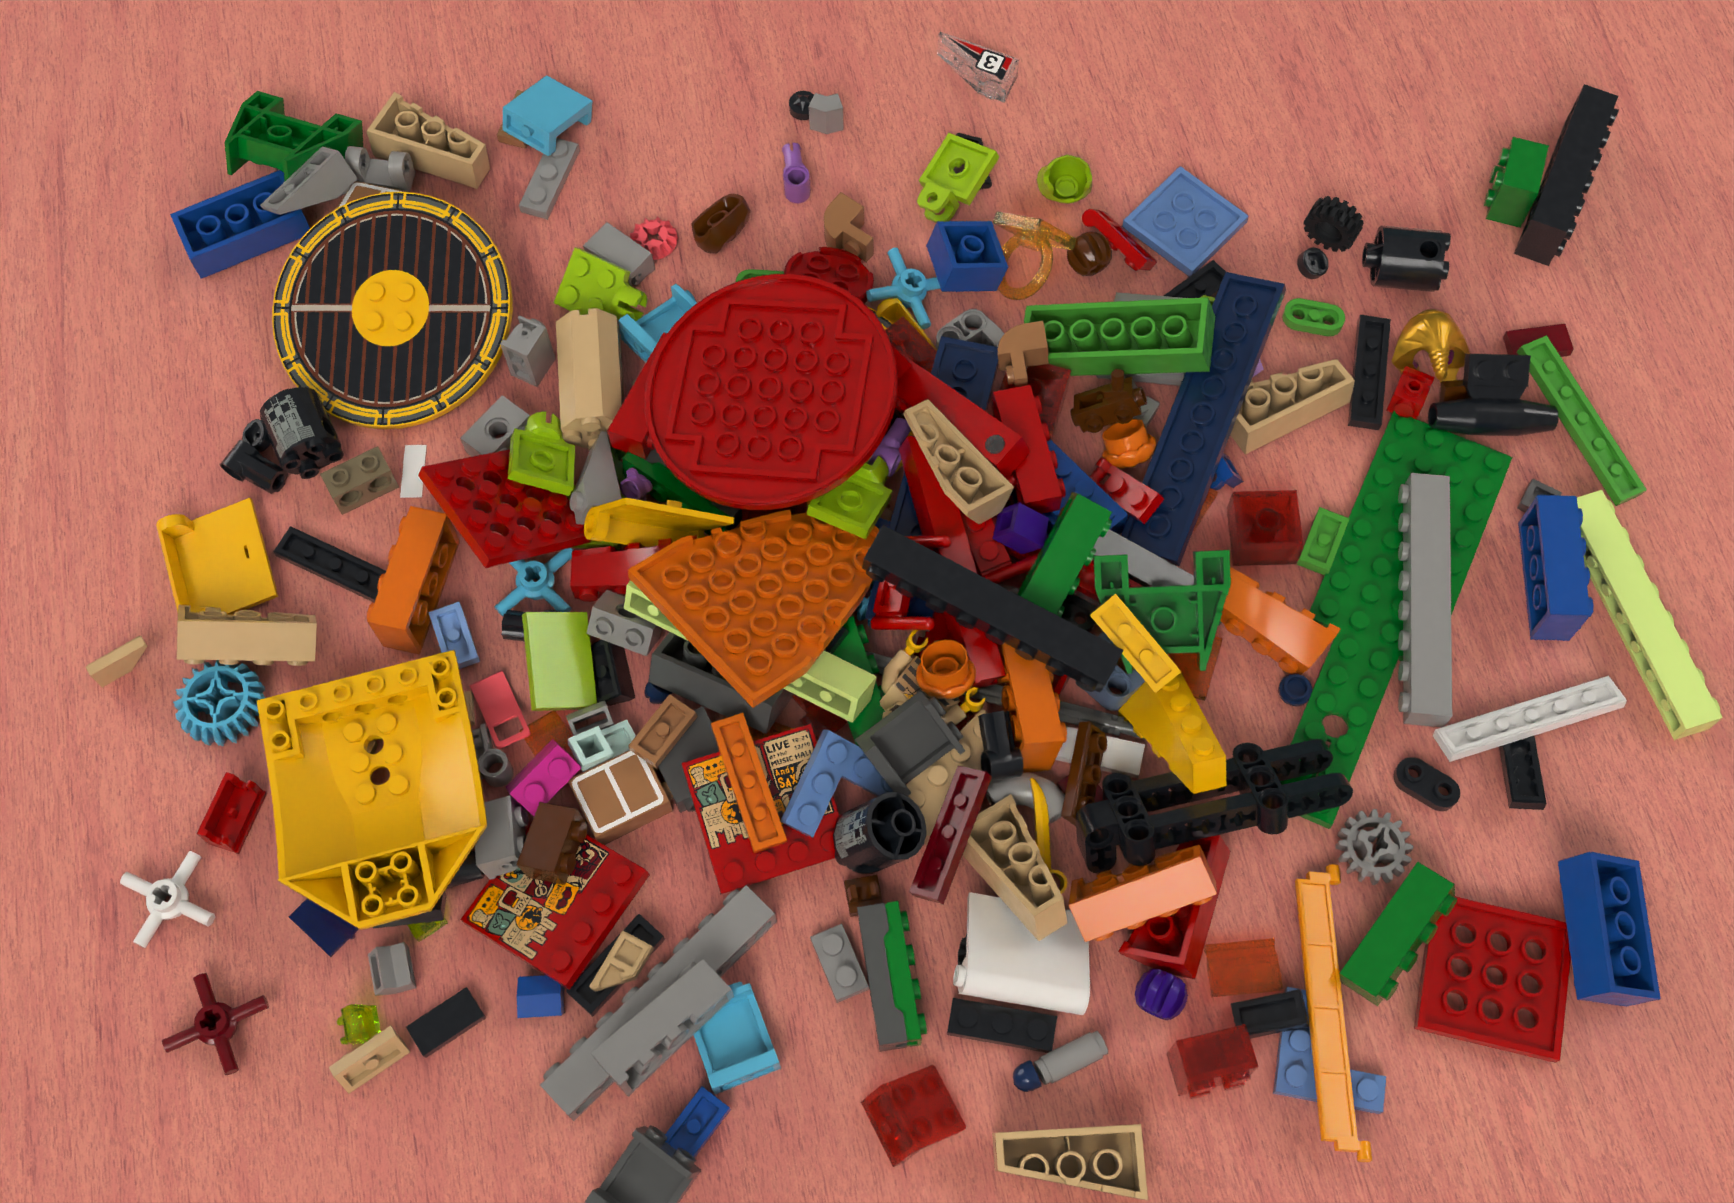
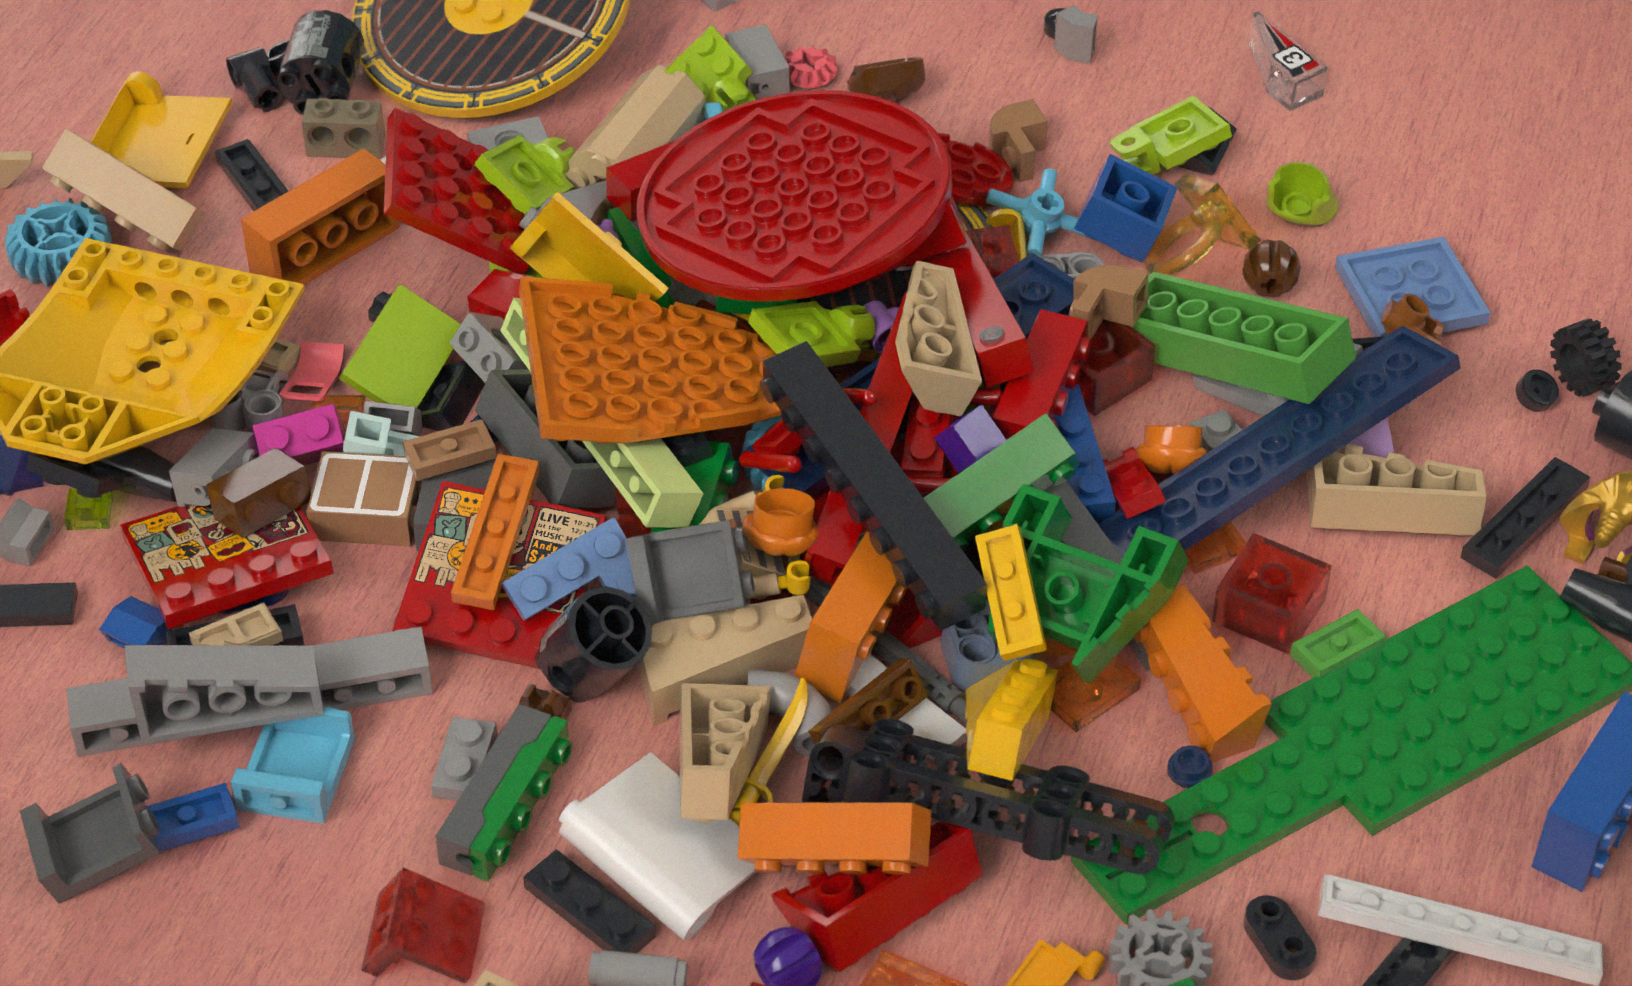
camera: 30 degrees right, 20 degrees down
(454, 633) = (323, 294): light blue plate -> none
(528, 351) = (593, 89): light grey hinge -> none
(541, 588) = (440, 280): medium azure bar -> none
(795, 175) = (999, 72): medium lavender pin -> none
(950, 834) = (667, 677): dark red plate -> none
(1000, 755) = (784, 633): black piece -> none
(1026, 1077) = (573, 964): dark blue hinge -> none
(1108, 403) = (1181, 400): reddish brown brick -> none
(1119, 239) = (1317, 271): red plate -> none
(1215, 255) = (1413, 314): none -> dark orange plate
(1226, 474) = (1268, 522): blue tile -> none
(1313, 316) = (1497, 438): bright green plate -> none
(1410, 393) = (1558, 554): red brick -> none
(1426, 601) = (1410, 745): light grey brick -> none

